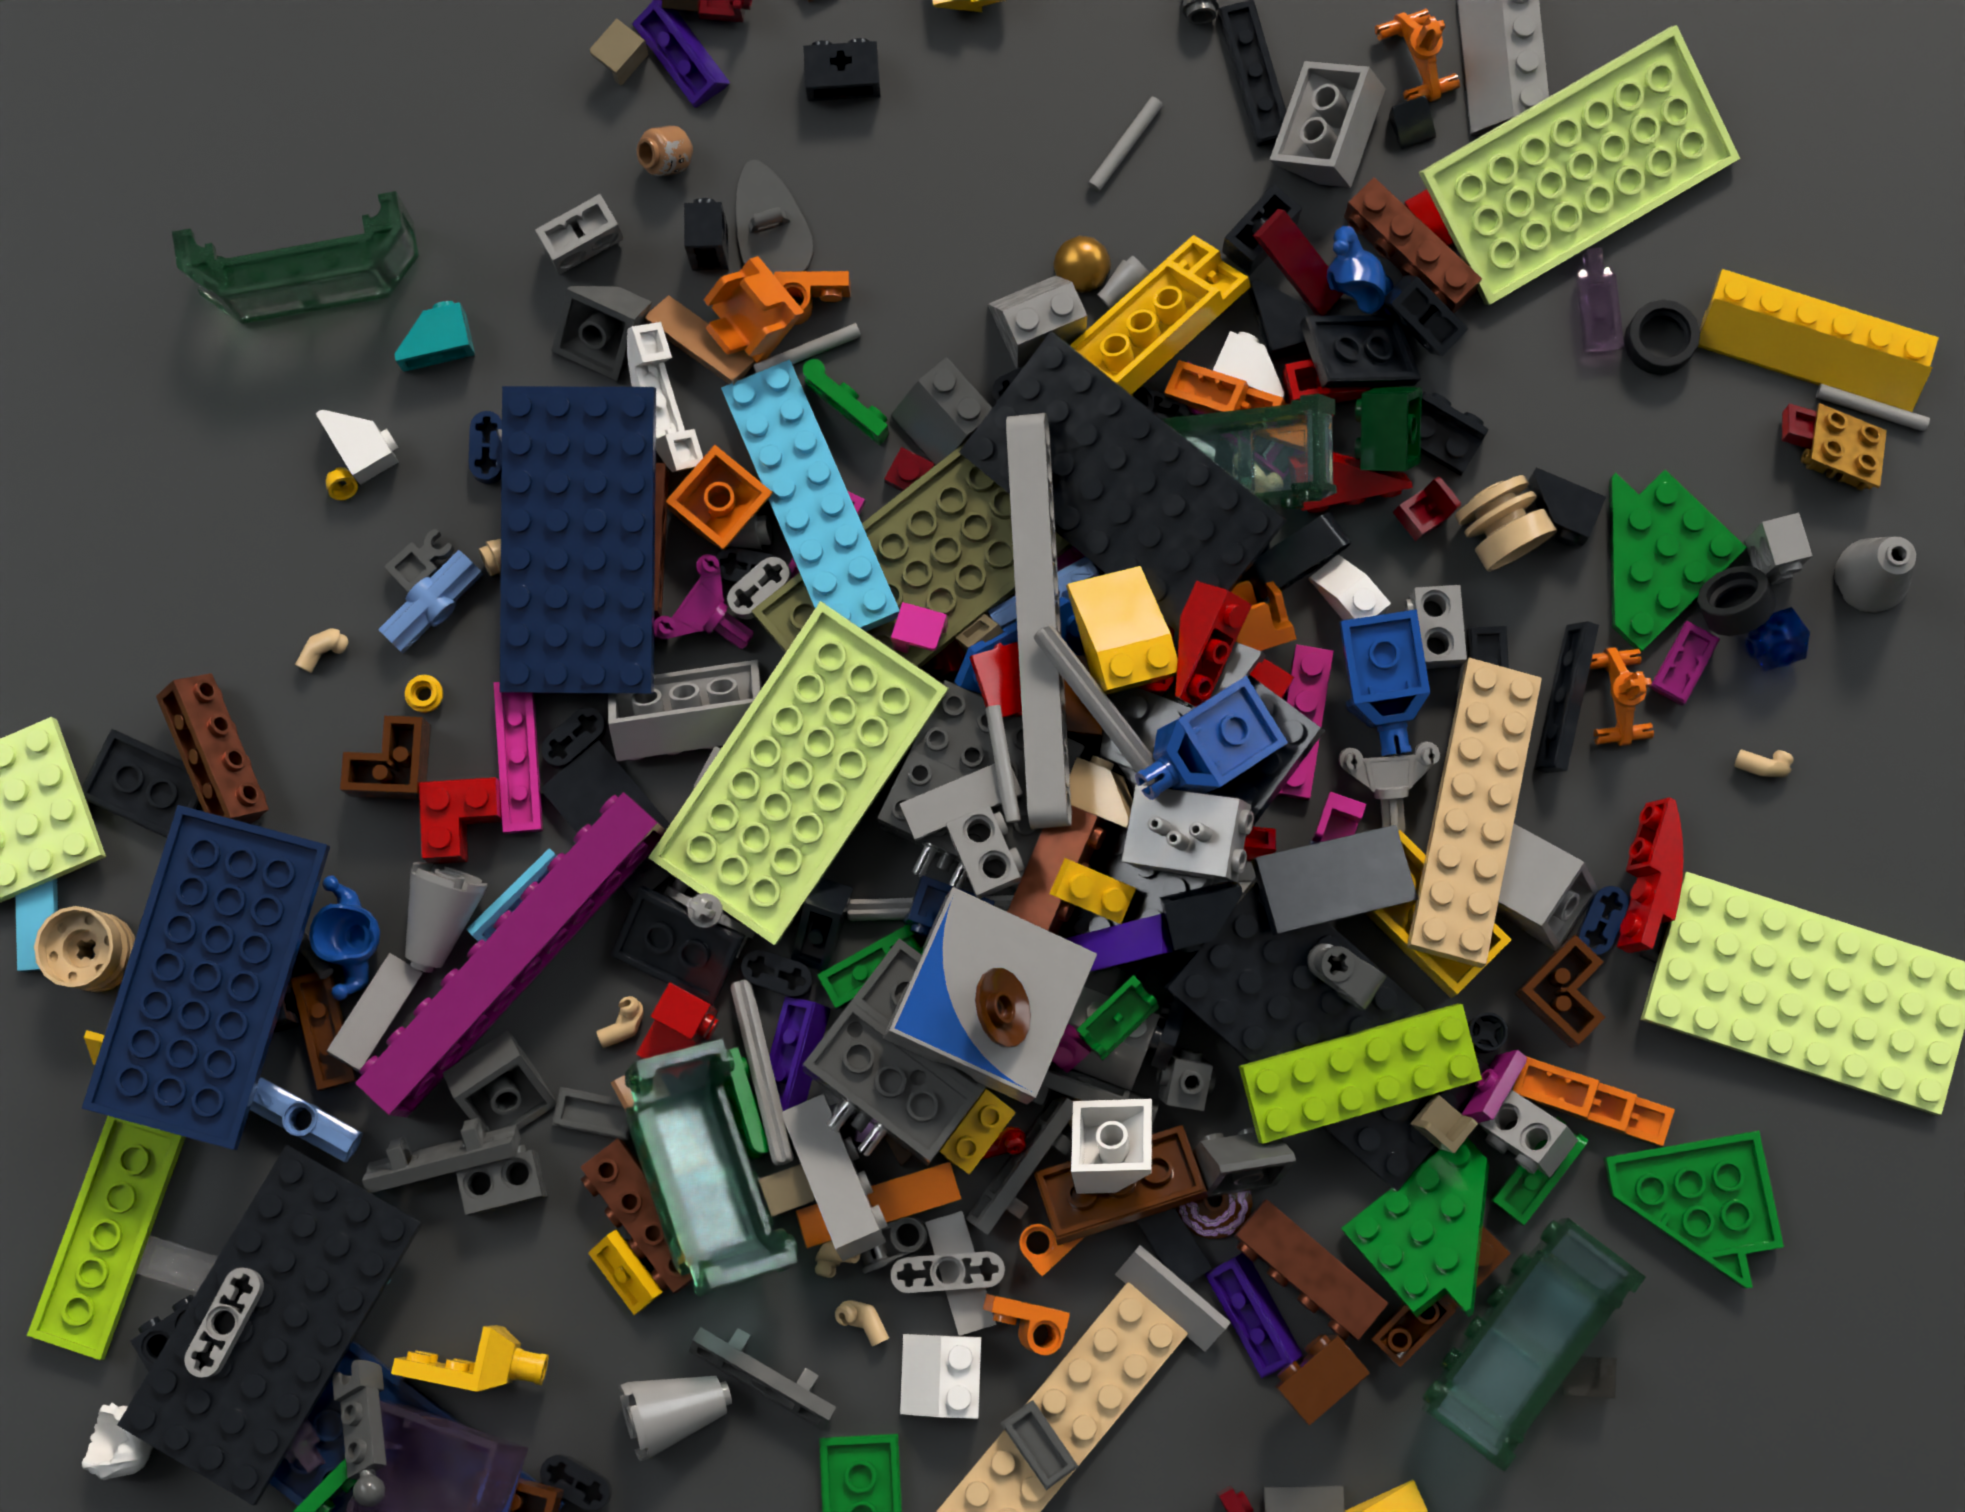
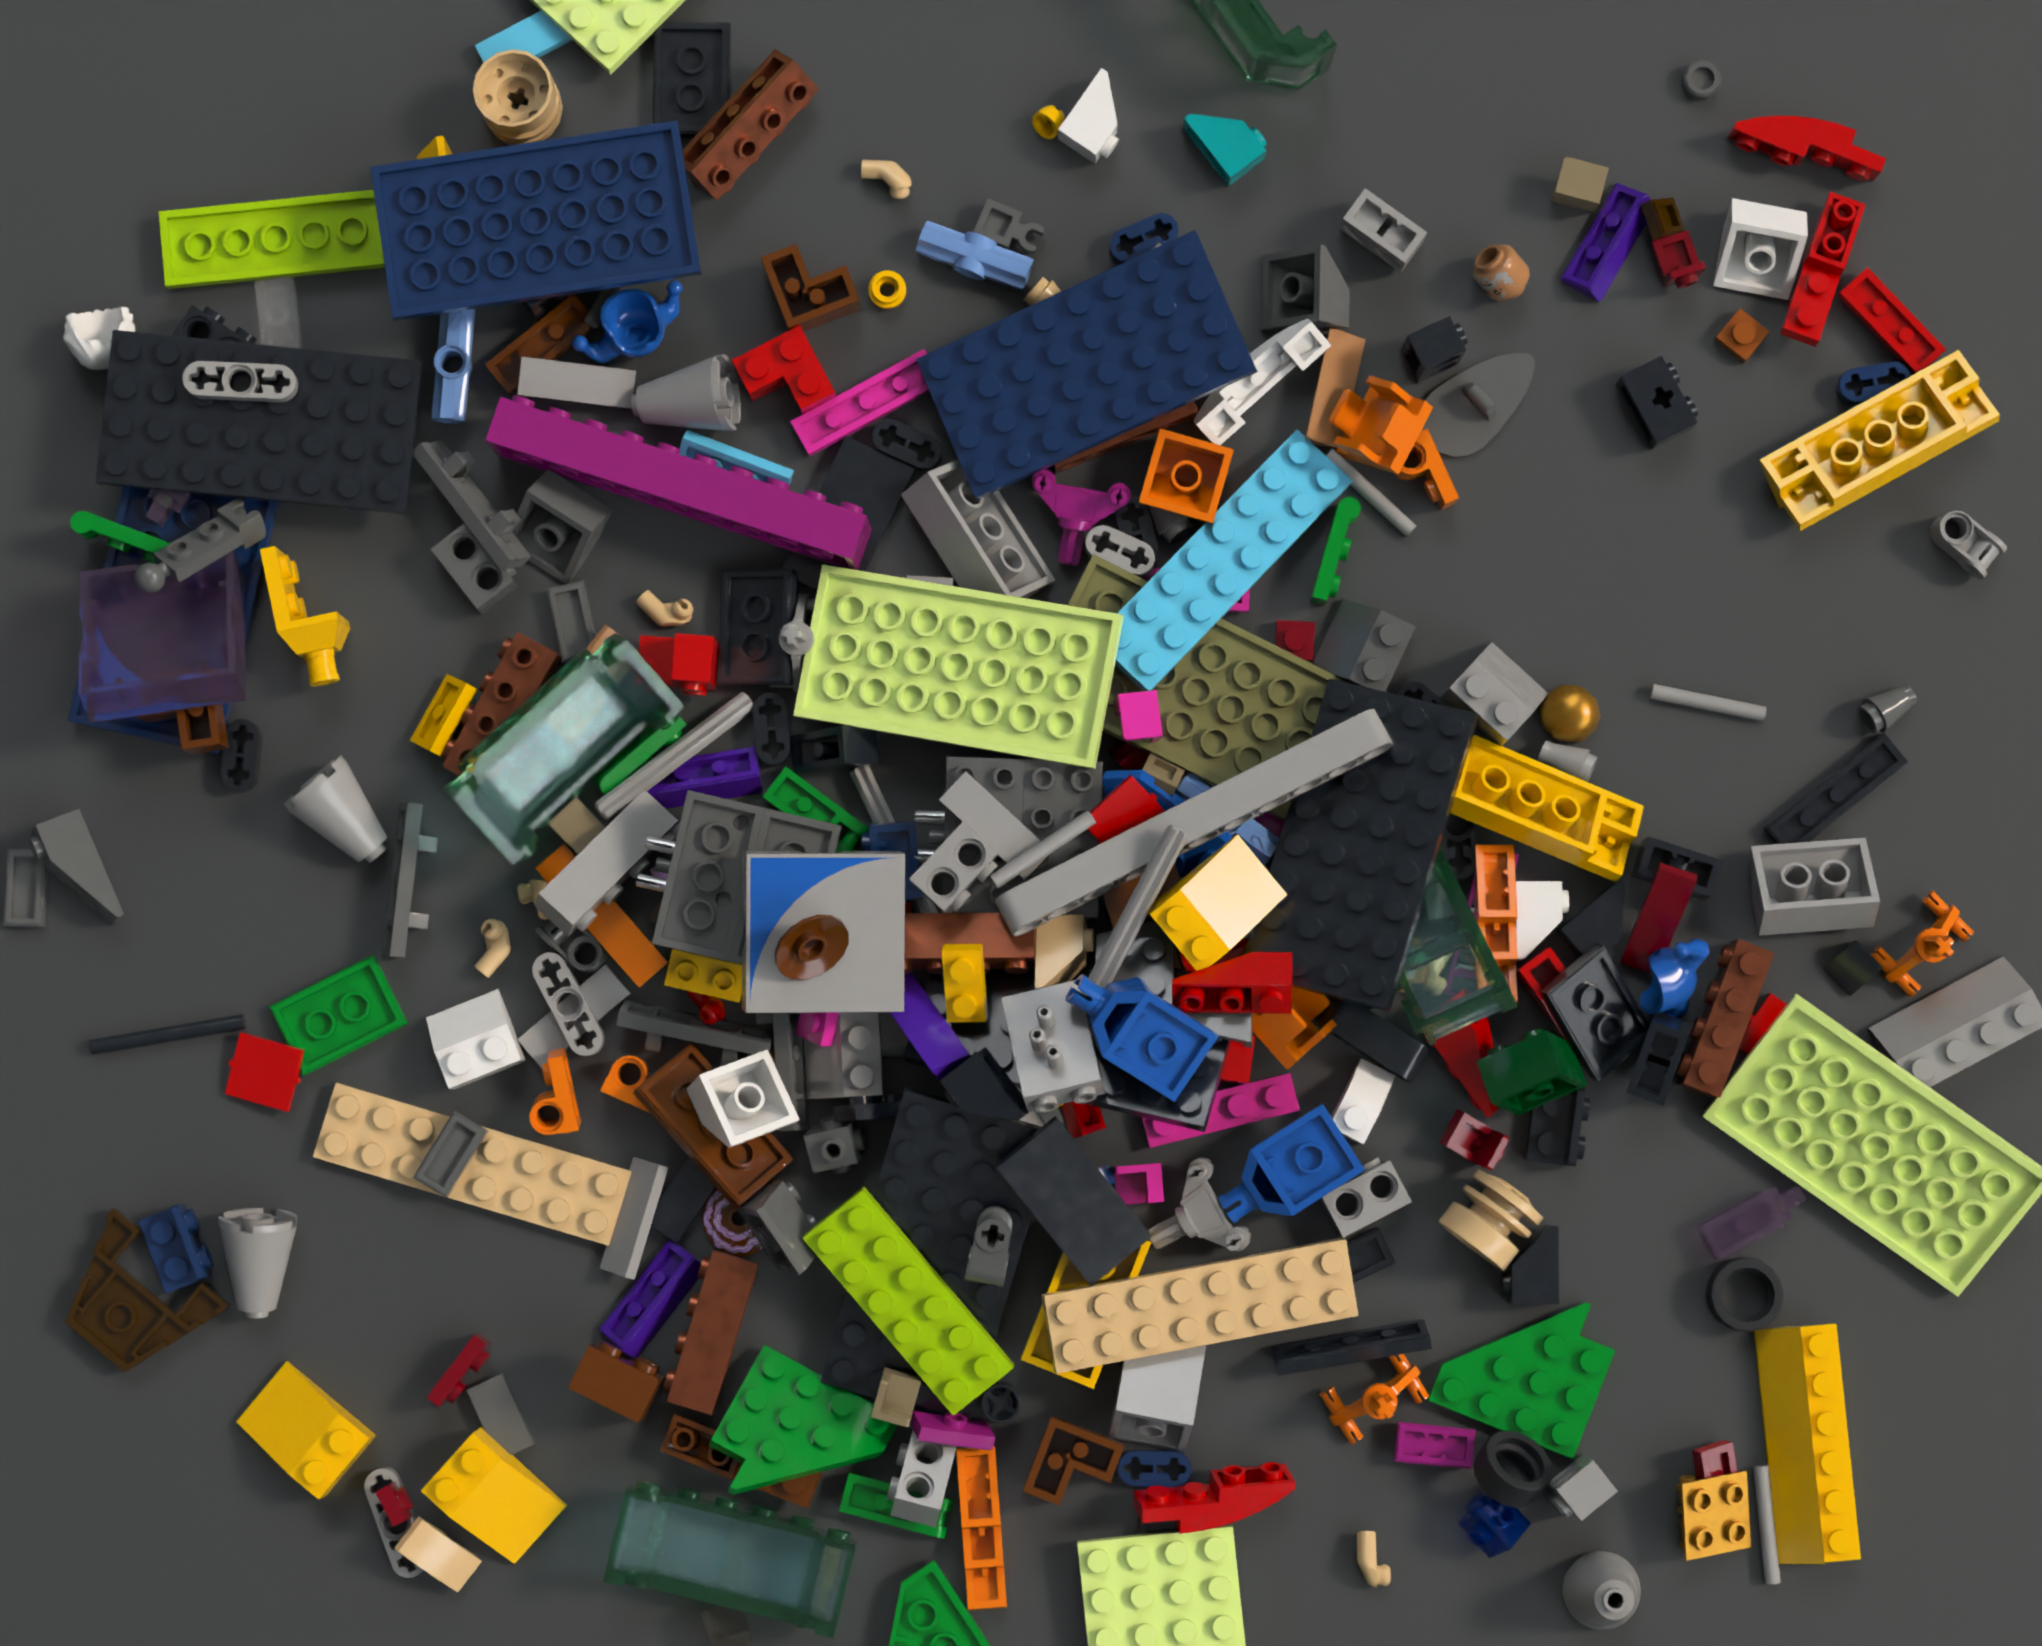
camera: 60 degrees right, 5 degrees up
(1117, 1018) = (859, 1057): green hinge -> none

